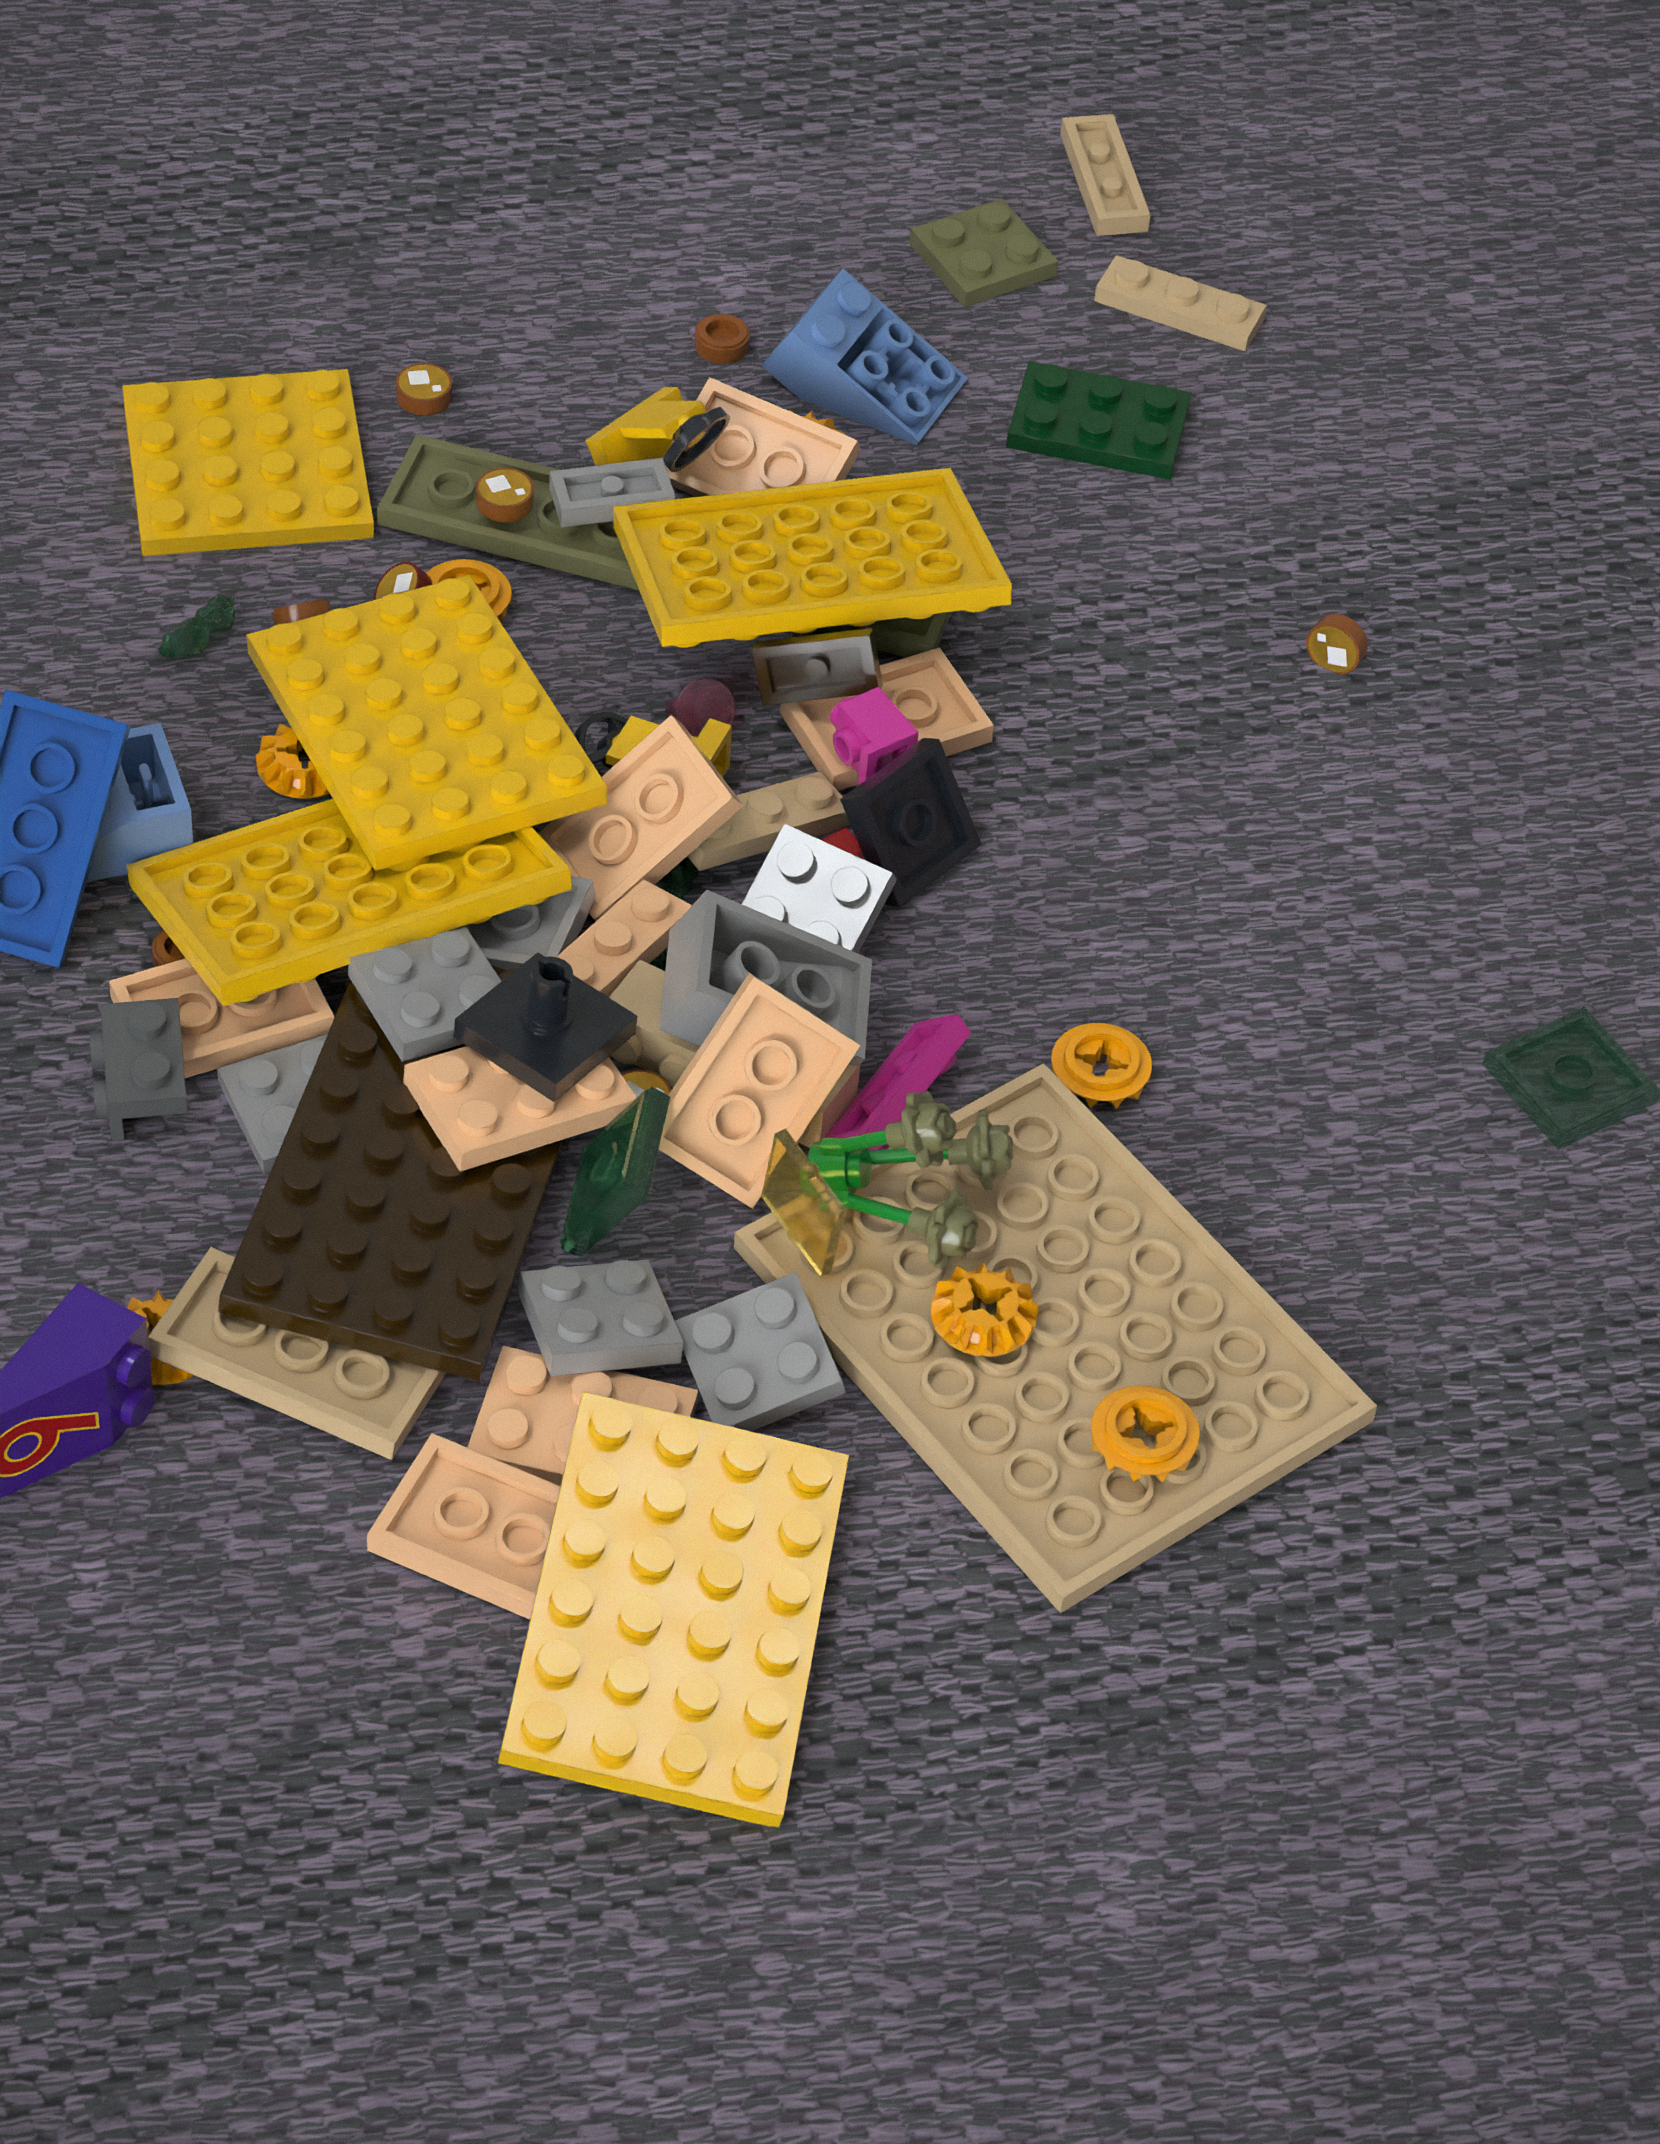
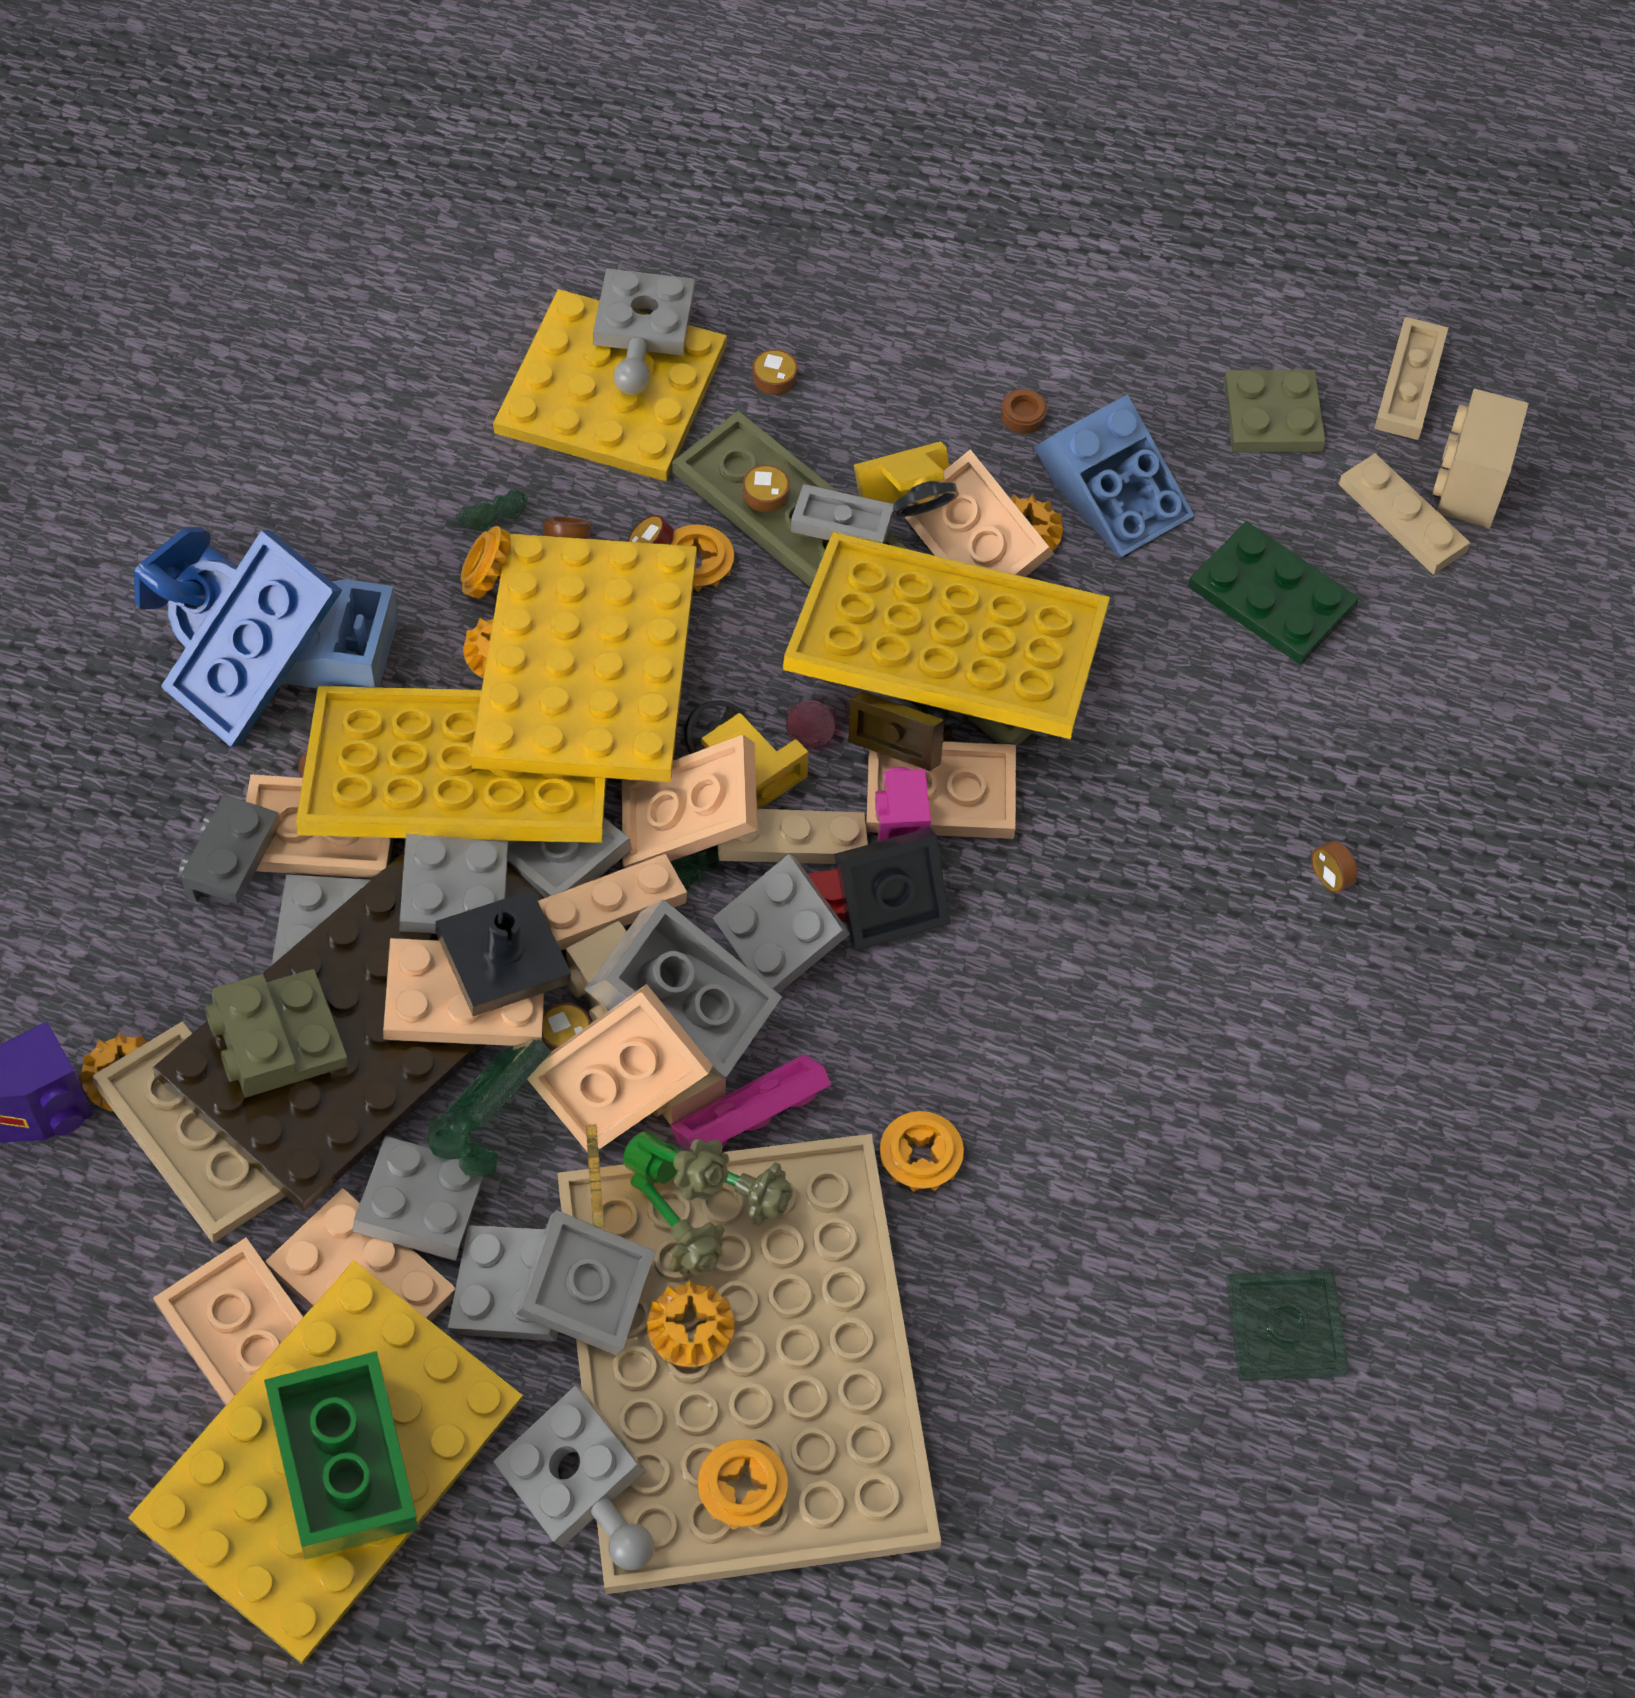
camera: 30 degrees right, 10 degrees up
(236, 674) = (485, 562): none -> light orange gear
(279, 379) = (659, 332): none -> light grey plate
(342, 1200) = (275, 1031): none -> olive plate
(605, 1247) = (451, 1145): none -> clear green piece
(715, 1568) = (341, 1455): none -> green brick
(853, 1308) = (585, 1282): none -> light grey plate
(973, 1534) = (603, 1473): none -> light grey plate
(1233, 216) = (1479, 457): none -> tan brick

